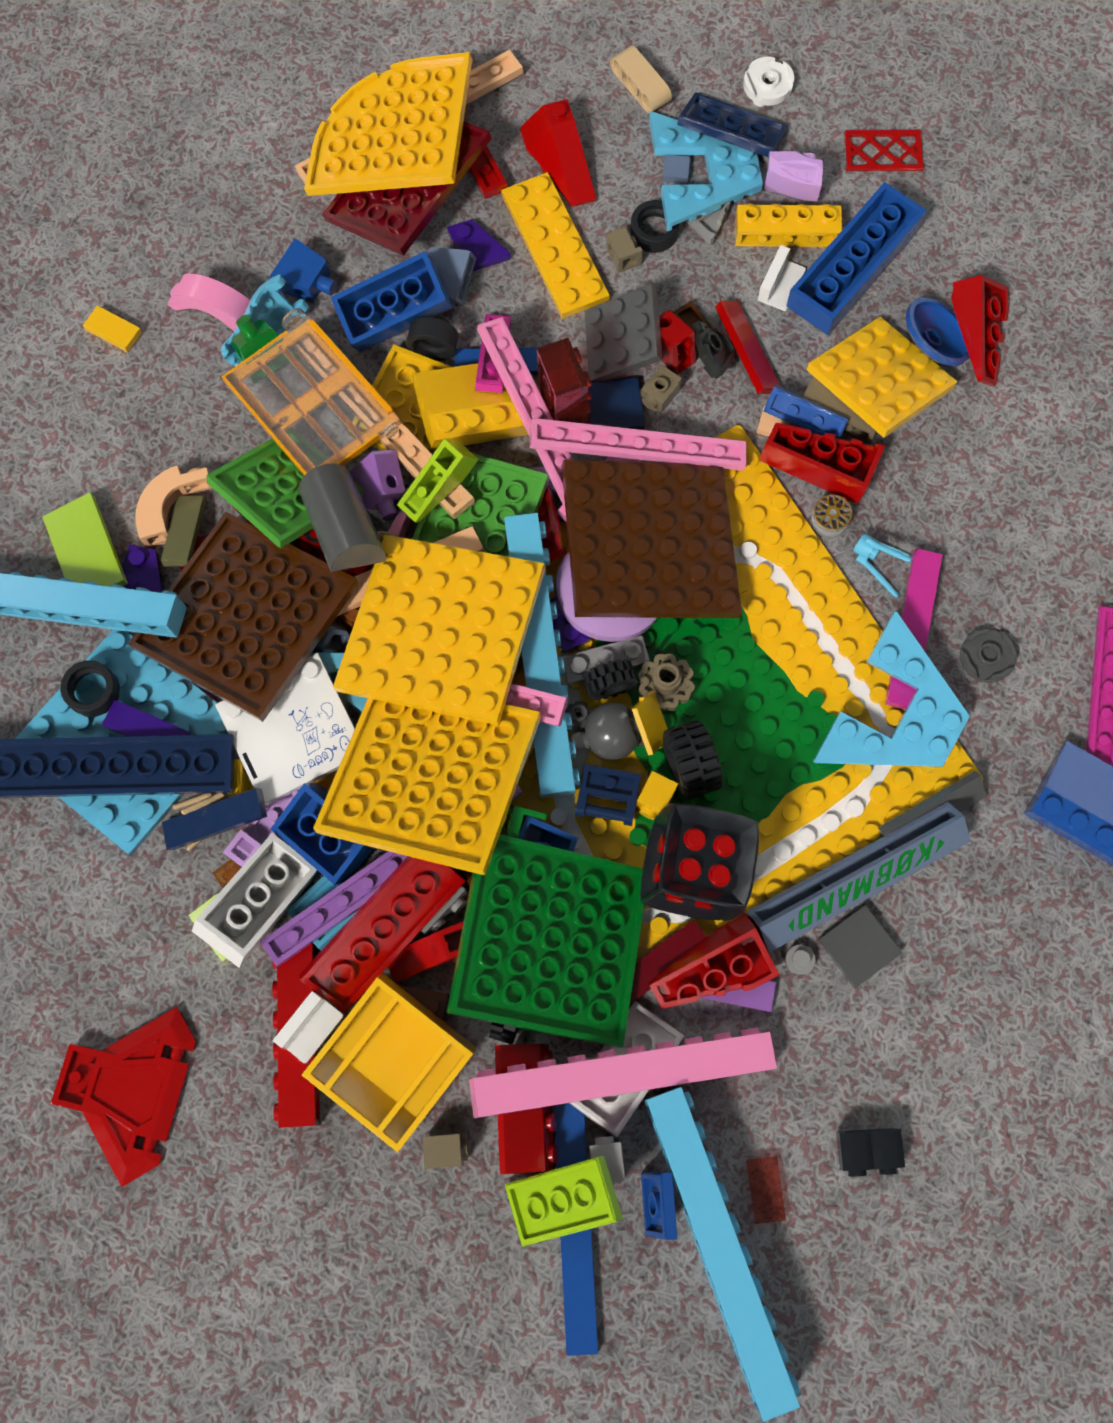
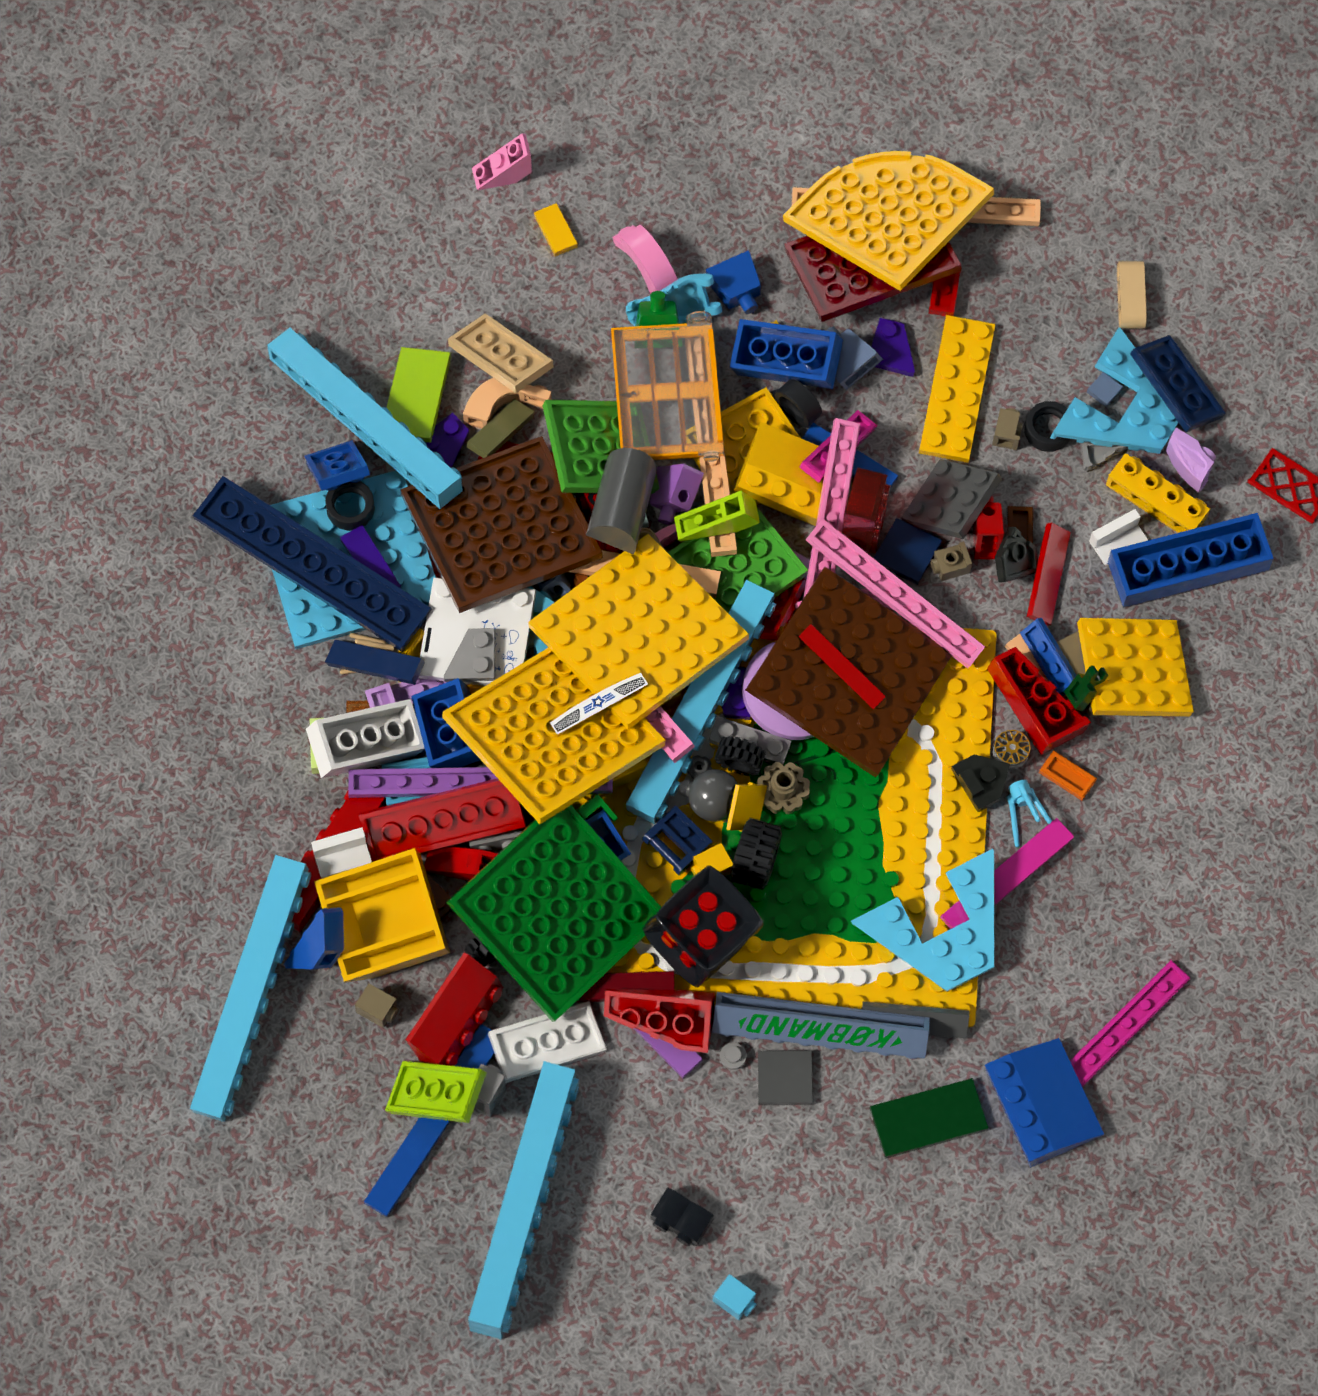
camera: 30 degrees right, 5 degrees down
(28, 299) = (505, 165): none -> bright pink slope
(54, 661) = (337, 465): none -> blue plate
(129, 1091) = (183, 815): red plate -> none
(137, 463) = (500, 353): none -> tan plate
(304, 753) = (474, 657): none -> light grey wing
(312, 1228) = (250, 988): none -> medium azure brick
(349, 1133) = (319, 943): none -> blue slope
(454, 719) = (598, 702): none -> white sticker
(555, 144) = (1017, 309): red wedge -> none
(620, 1074) = (541, 1035): bright pink brick -> none
(643, 538) = (841, 666): none -> red sticker
(659, 1205) = (501, 1143): blue tile -> none
(764, 93) = (1235, 378): white plate -> none
(765, 1190) = (586, 1193): clear red tile -> none
(828, 558) = (981, 779): none -> pearl dark grey plate
(859, 420) = (1082, 688): none -> dark green plate
(892, 506) = (1067, 775): none -> orange tile
(936, 331) = (1209, 662): blue dish -> none
(975, 1193) = (735, 1297): none -> medium azure brick
(980, 309) = (1256, 674): red wedge -> none
(985, 663) = (1048, 944): dark grey tile -> none
(1010, 893) = (928, 1118): none -> dark green tile

